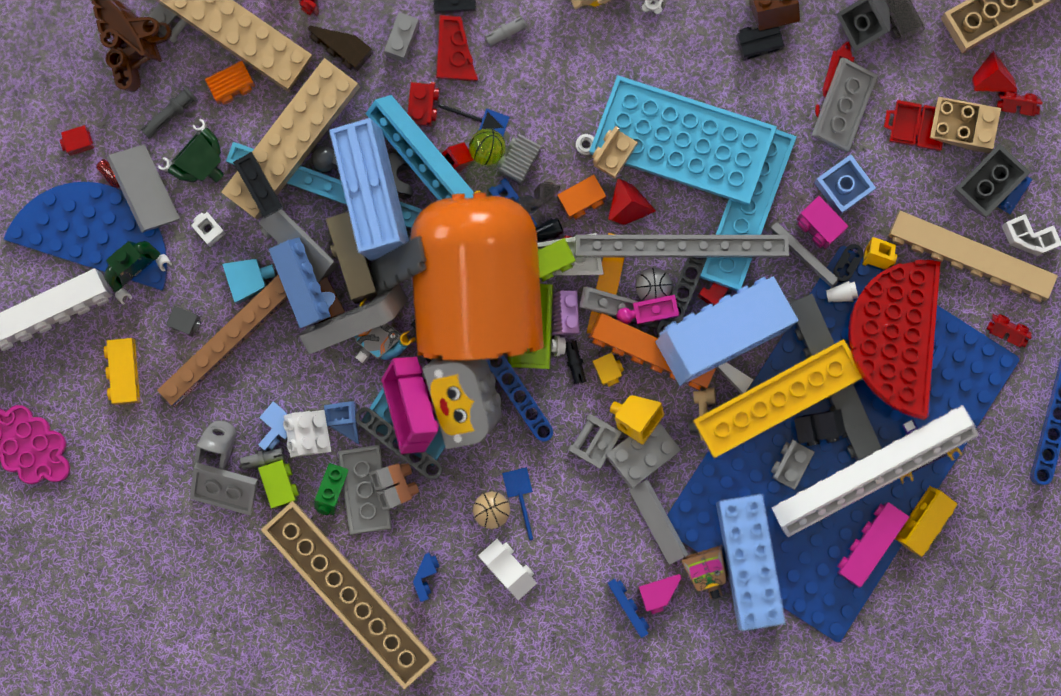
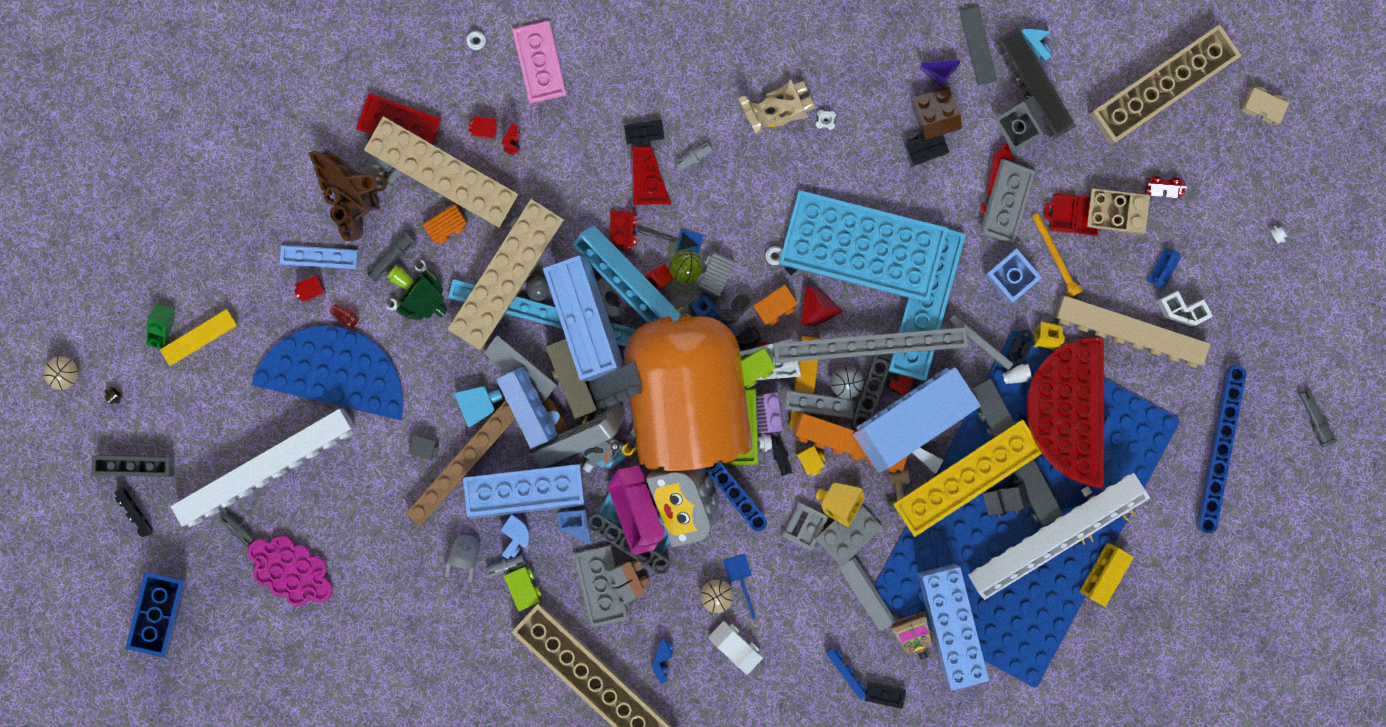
camera: 10 degrees left, 5 degrees up
(90, 107) = (319, 257): none -> light blue tile
(122, 371) = (371, 497): yellow brick -> none
(129, 262) = (369, 399): dark green torso -> none
(143, 188) = (374, 328): light grey tile -> none
(175, 135) = (399, 277): none -> lime cone
(201, 222) = (439, 368): white brick -> none
(223, 488) = (473, 597): light grey plate -> none
(258, 185) = (481, 321): black plate -> none
(288, 375) = (524, 491): none -> light blue brick
(306, 433) = (544, 541): white plate -> none
(330, 489) = (570, 589): green bracket -> none
(346, 46) = (548, 182): dark brown slope -> none
(402, 37) = (599, 170): light grey brick -> none
(614, 152) = (802, 264): tan bracket -> none
(650, 310) = (845, 406): dark pink plate -> none
(658, 593) = (872, 657): dark pink slope -> none
(670, 636) = (885, 695): none -> black plate
(792, 464) = (983, 533): light grey bracket -> none
(821, 223) = (994, 313): dark pink brick -> none
(872, 544) = (1060, 599): dark pink brick -> none
(909, 205) = (1072, 288): none -> light orange piece
(991, 181) = (1145, 263): dark grey slope -> none
(993, 76) = (1140, 164): red slope -> none
(1017, 333) = (1163, 391): red hinge -> none

